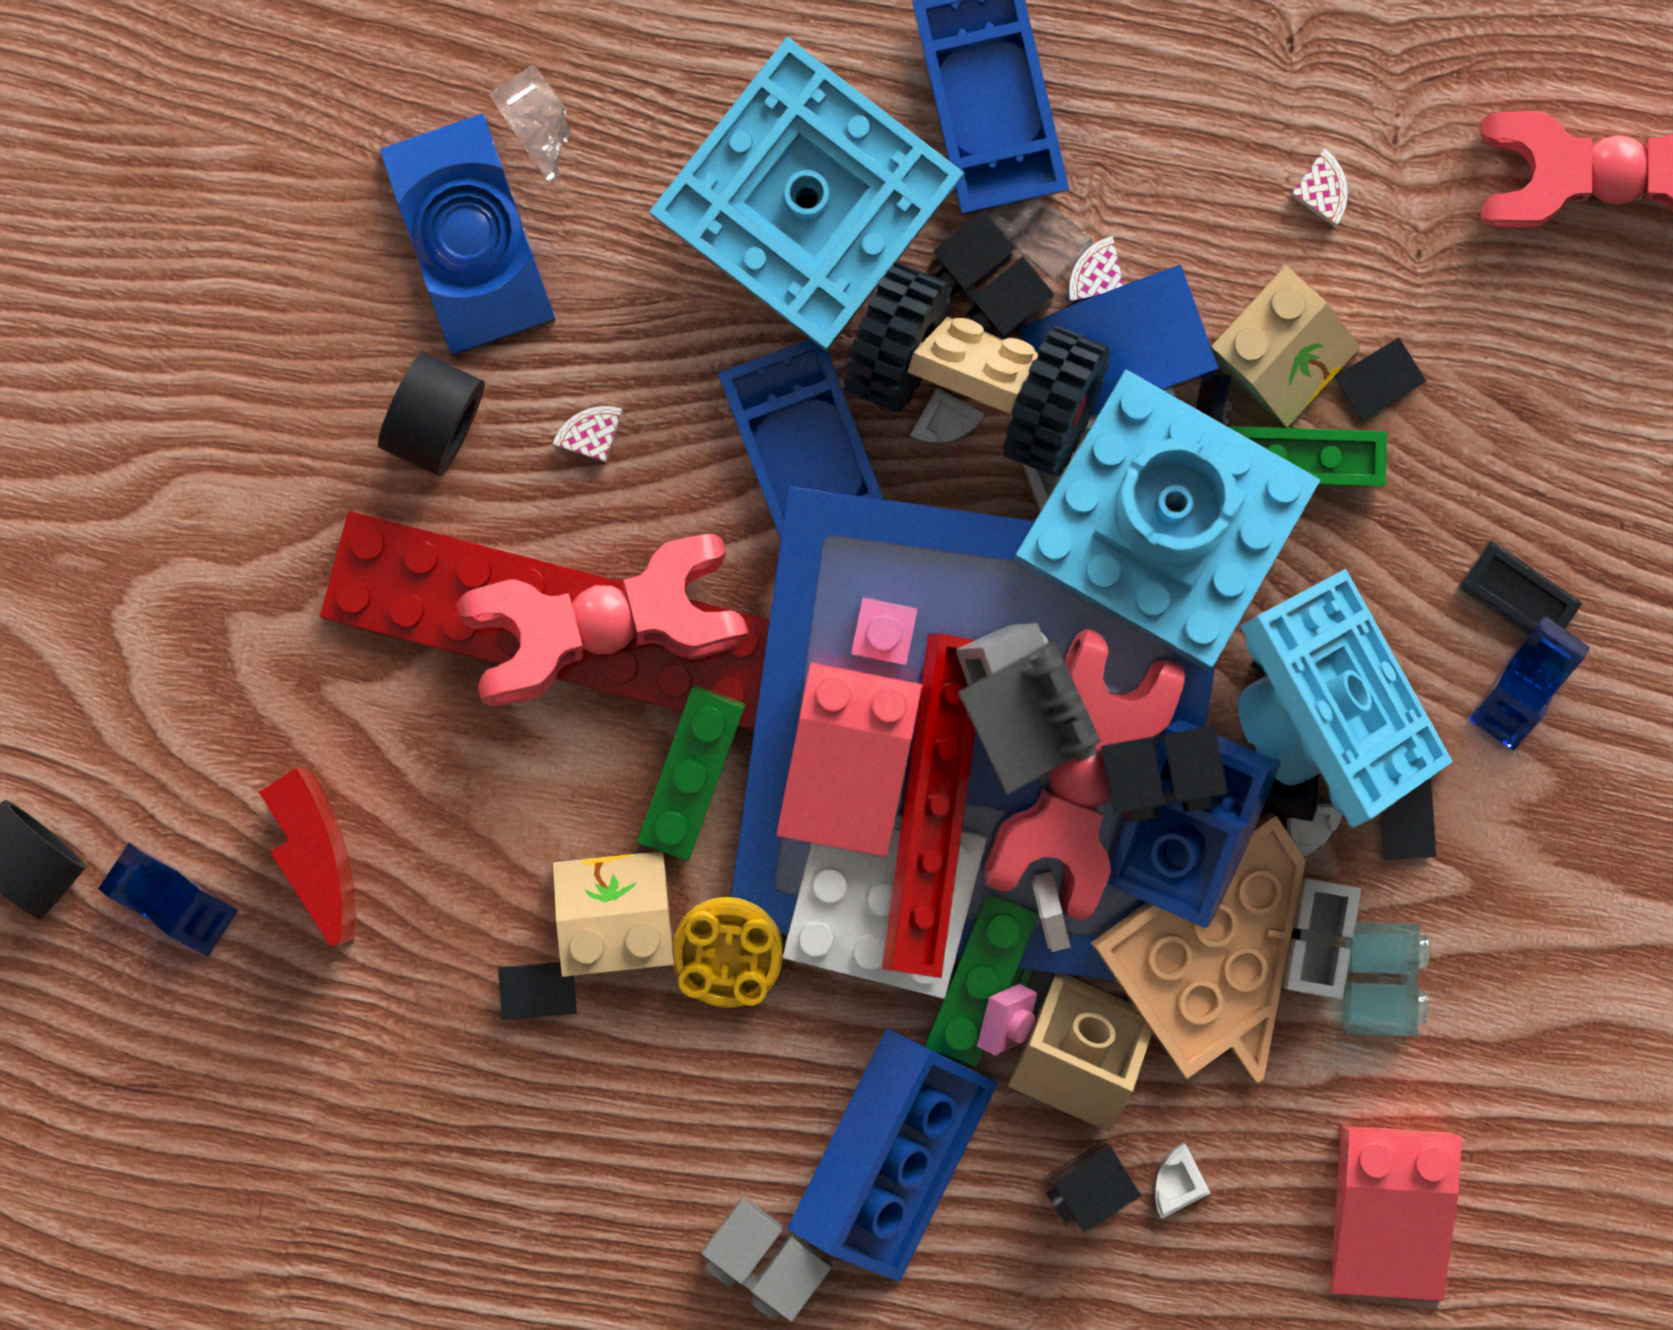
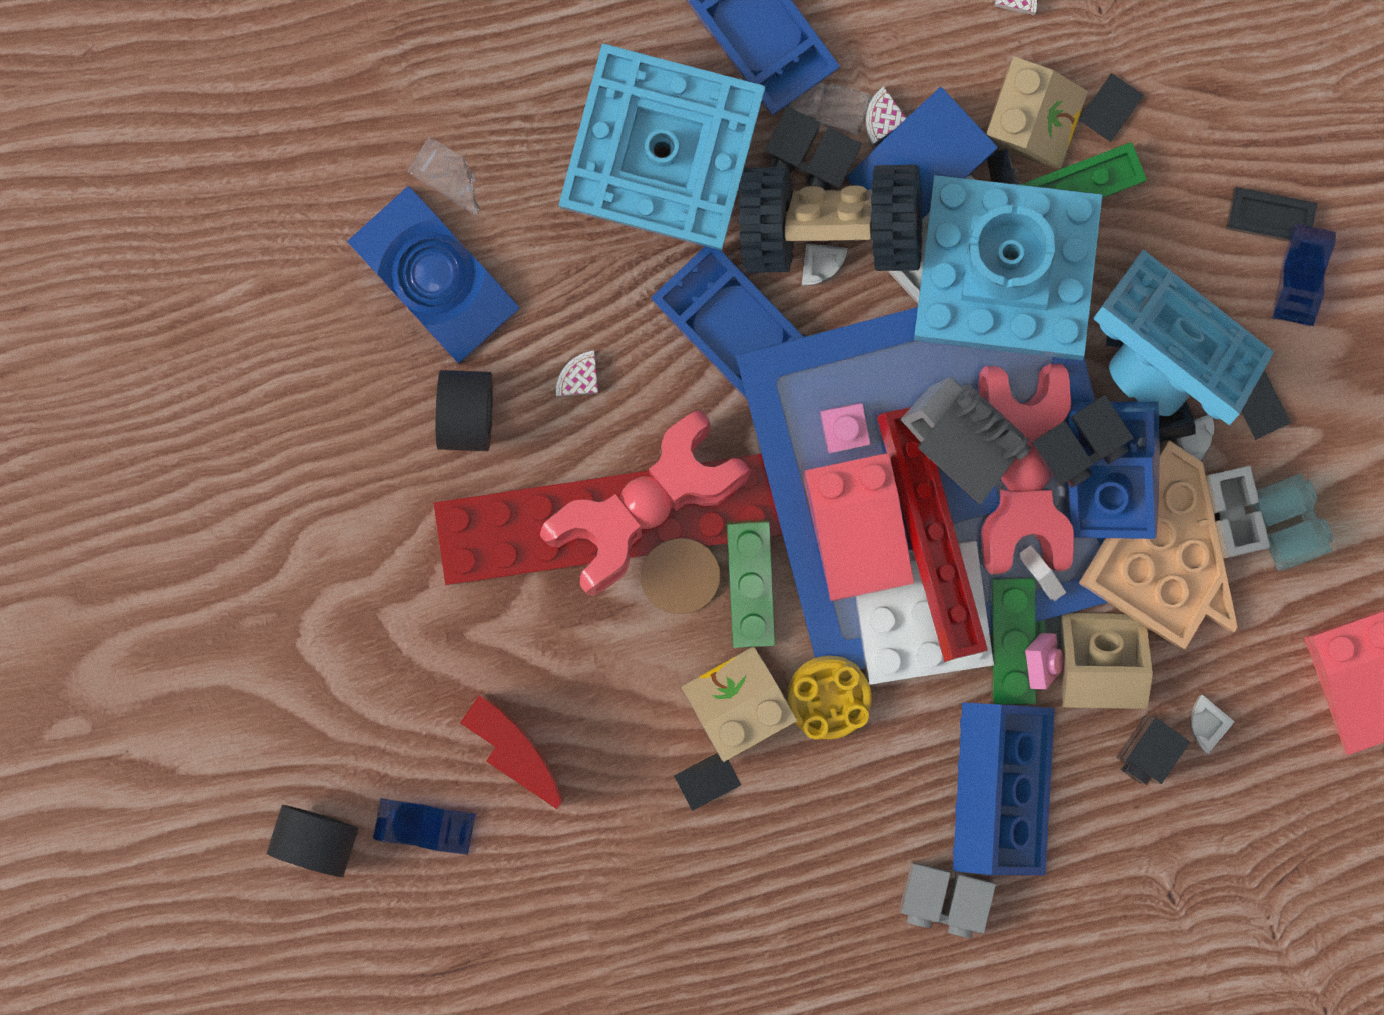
camera: 20 degrees left, 0 degrees up
(610, 727) = (680, 576): none -> medium nougat sticker

